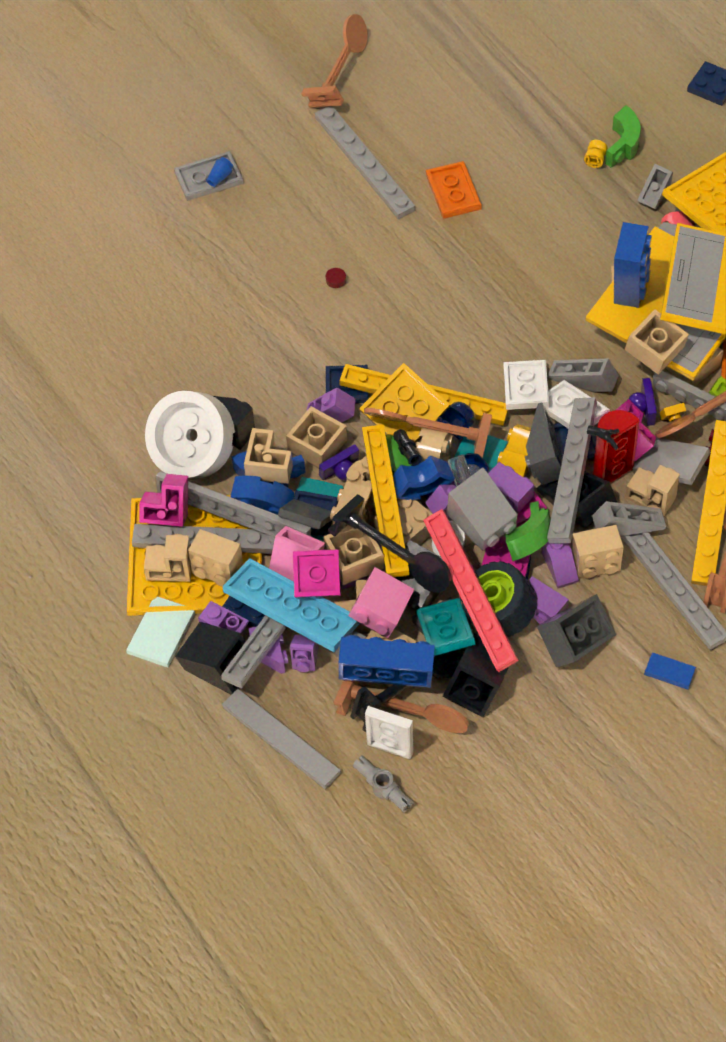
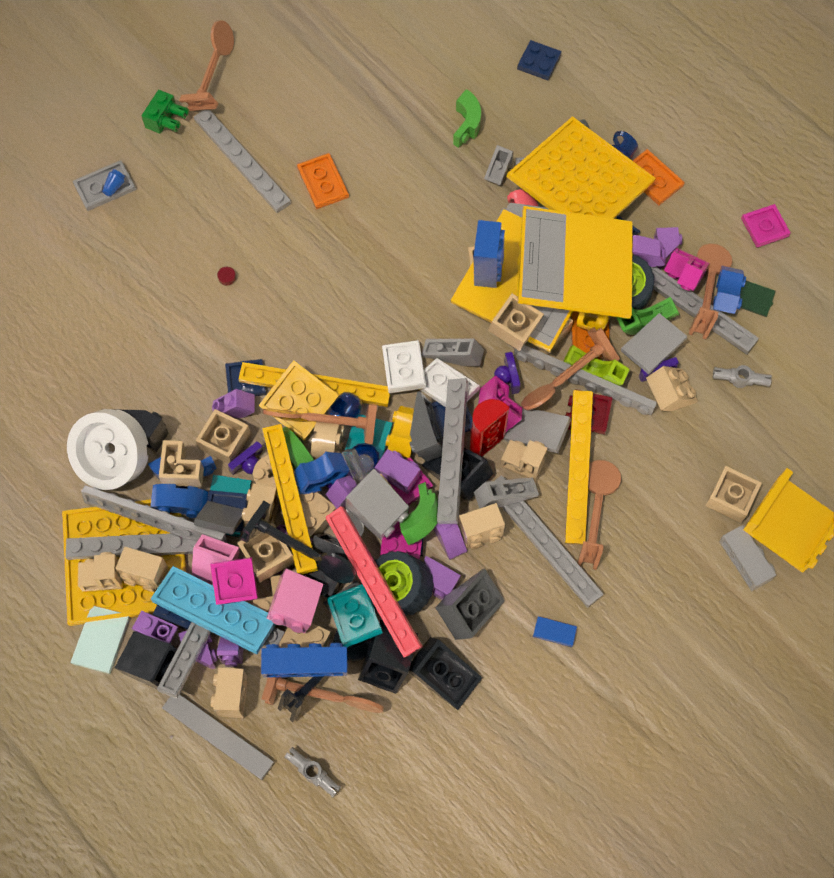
camera: 10 degrees left, 10 degrees up
(169, 506) = (95, 519): dark pink brick -> none
(278, 104) = (159, 113): none -> green brick
(299, 693) = (230, 692): none -> tan brick
(389, 732) = (313, 727): white tile -> none
(407, 447) = (304, 444): black pin -> none
(540, 699) = (444, 673): none -> black slope
(595, 153) = (444, 135): yellow wheel -> none
(603, 433) = (480, 425): black bar -> none
(672, 412) = (534, 382): yellow plate -> none

